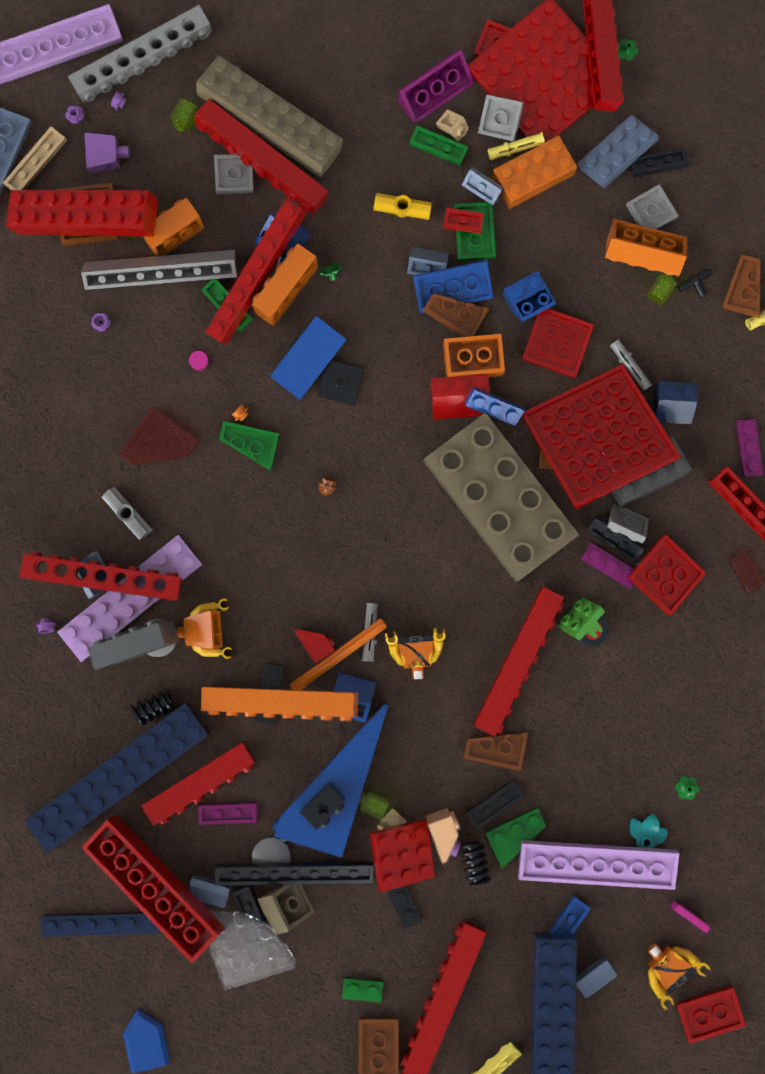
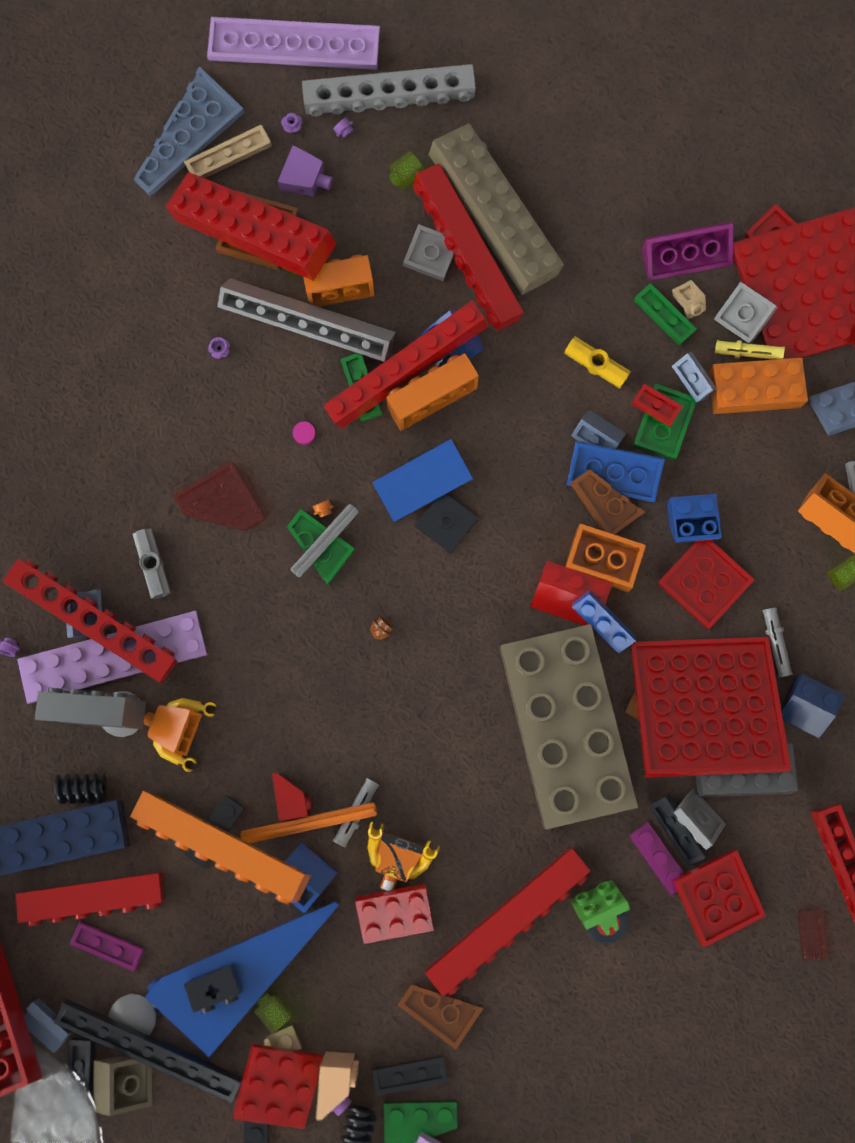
camera: 30 degrees right, 5 degrees down
(253, 437) = (324, 540): none -> light grey axle
(330, 271) = (488, 398): green plant -> none
(432, 693) = (394, 913): none -> plate

